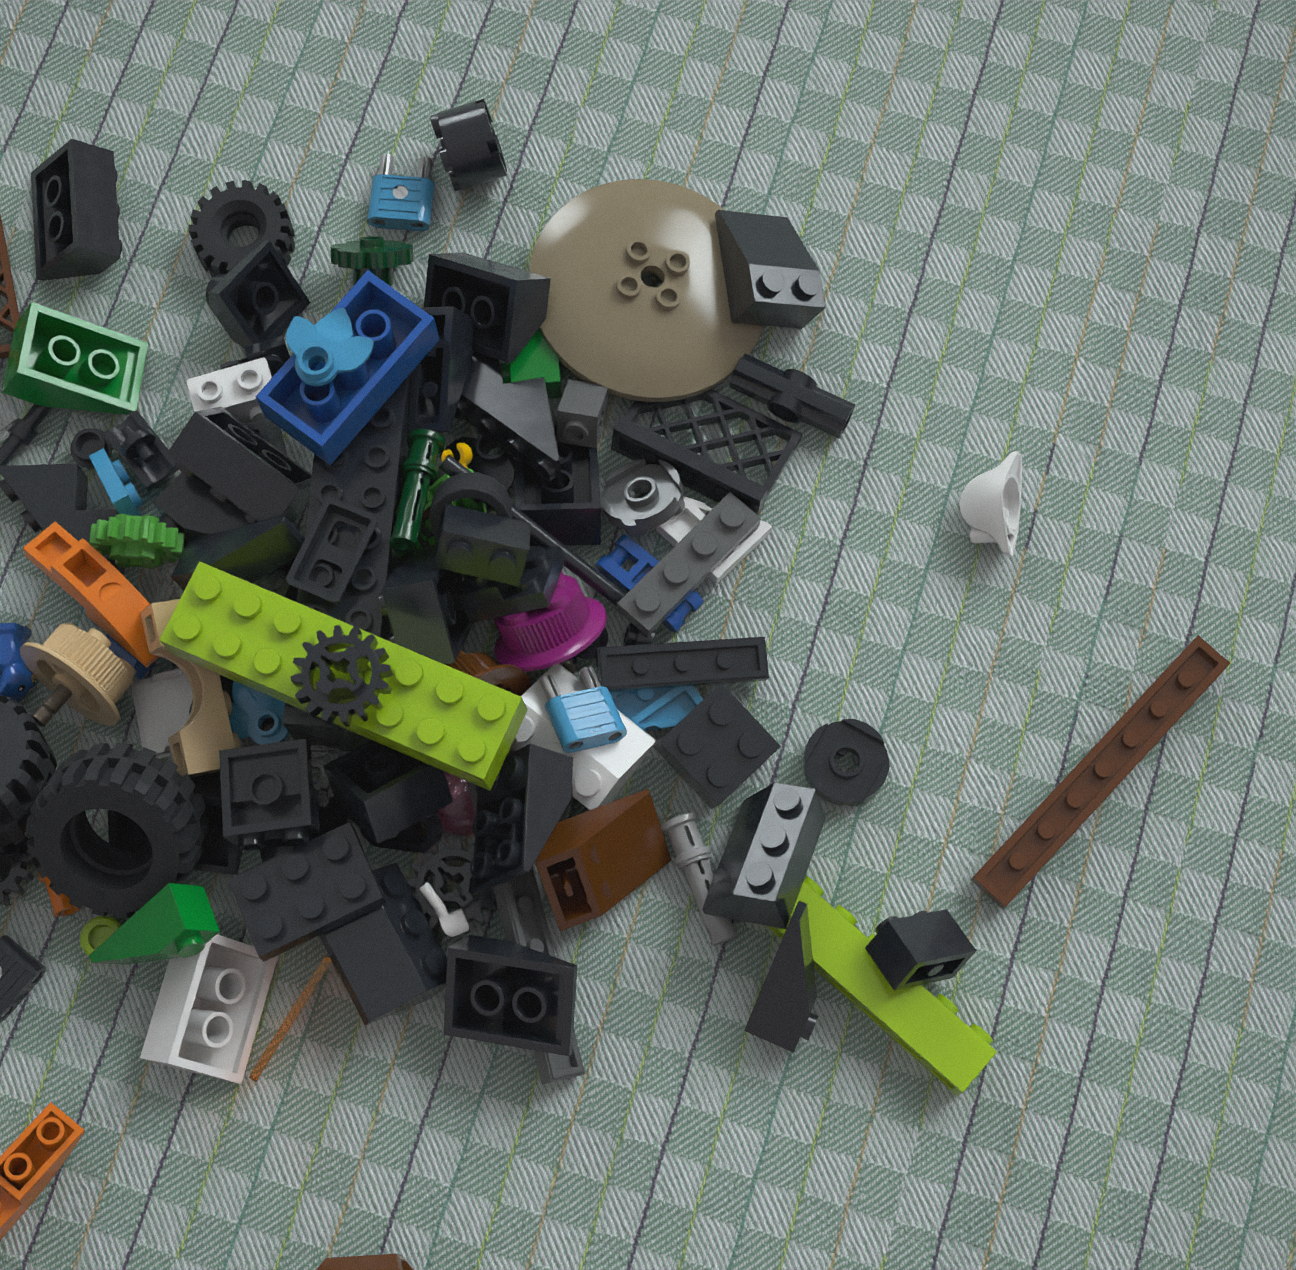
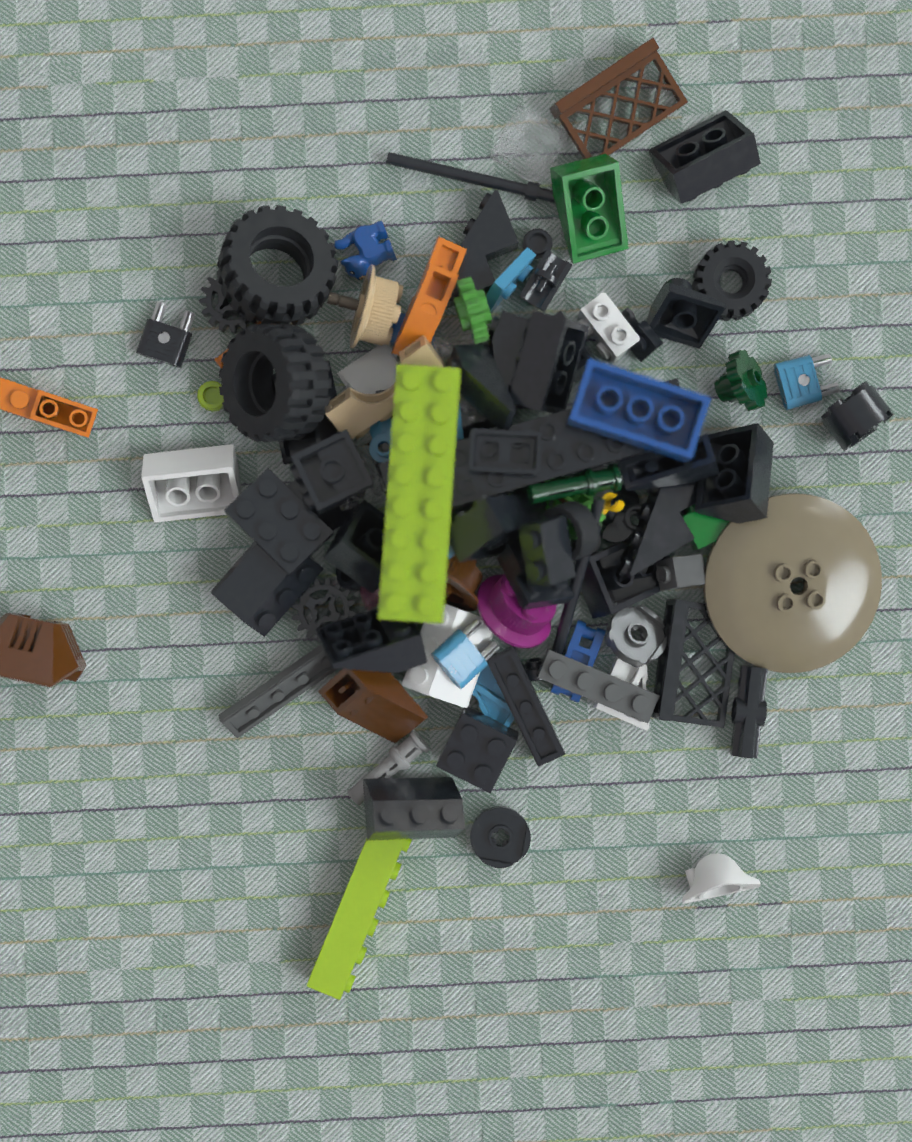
camera: 65 degrees right, 15 degrees up
(166, 927) = (224, 441): green slope -> none
(290, 1019) = (200, 540): clear orange piece -> none
(327, 342) = (645, 393): dark azure plate -> none
(332, 690) = (423, 505): black gear -> none
(453, 922) = (296, 621): white hand -> none
(509, 995) = (261, 677): black slope -> none
(767, 271) = (837, 662): black slope -> none
(789, 990) = (328, 852): black slope -> none
(919, 948) = (388, 929): black brick -> none
(1099, 772) = (555, 1008): reddish brown plate -> none

